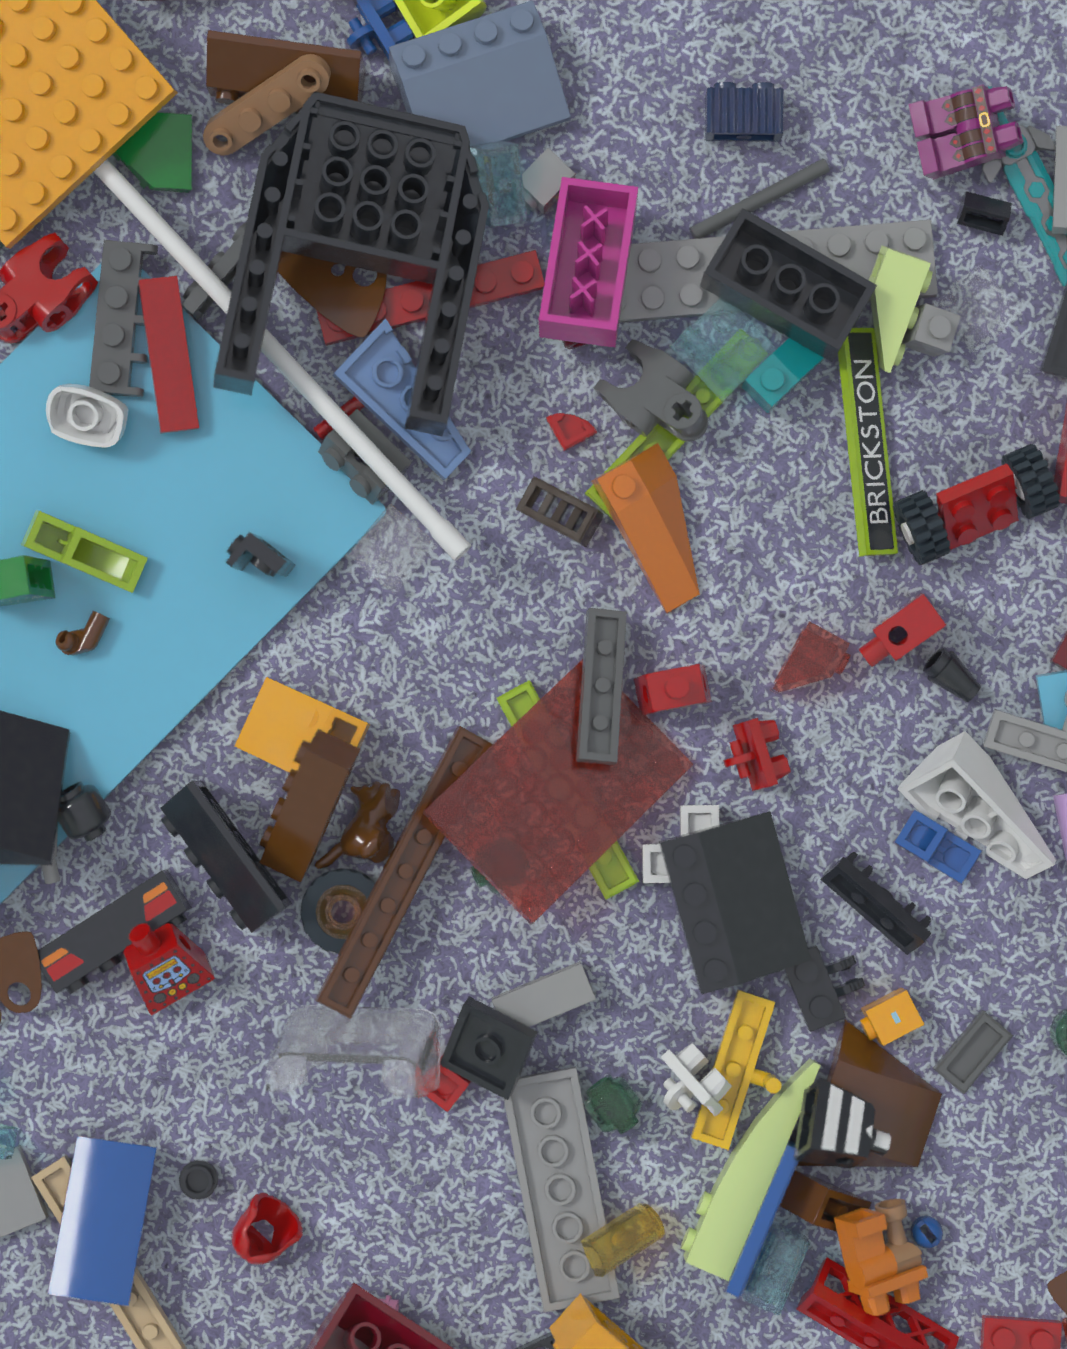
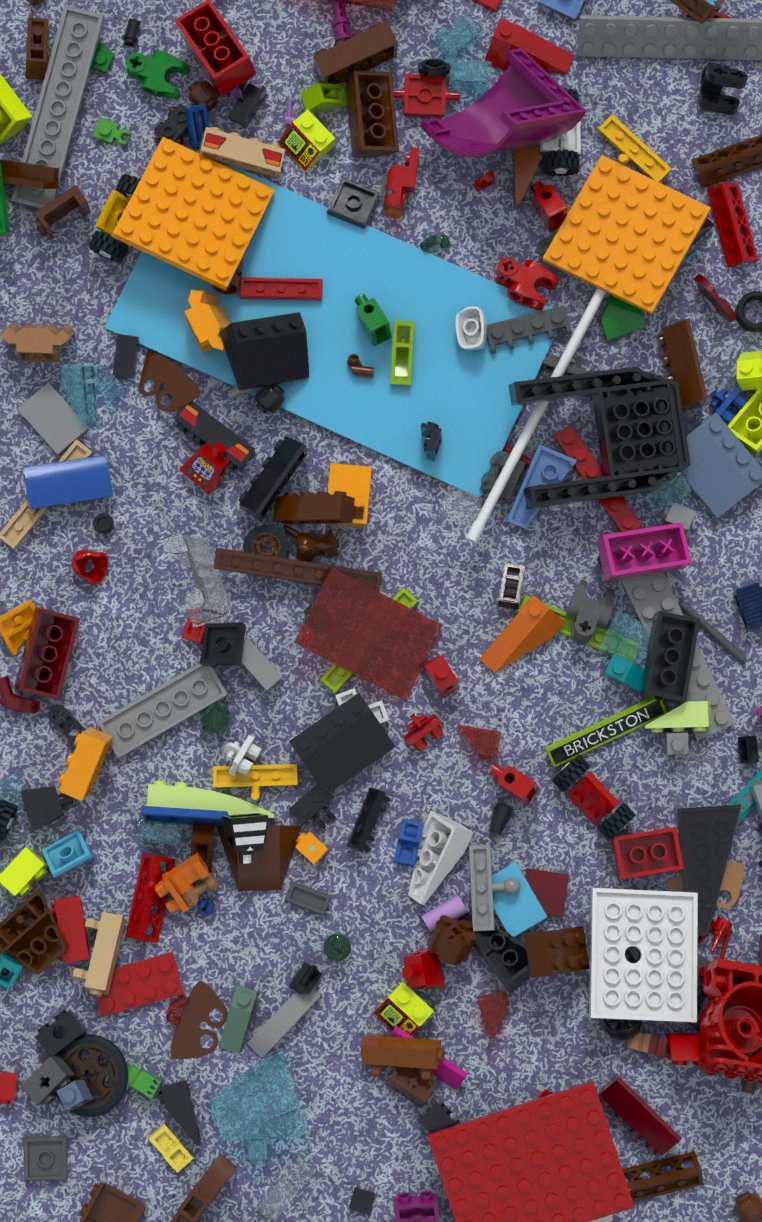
camera: 70 degrees right, 5 degrees down
(168, 354) = (518, 358): red tile -> none
(266, 104) = (663, 361): medium nougat plate -> none
(333, 296) = (579, 433): reddish brown piece -> none
(570, 429) = (555, 576): red tile -> none
(601, 686) = (428, 636): dark grey plate -> none
(622, 1238) = (148, 748): clear yellow brick -> none

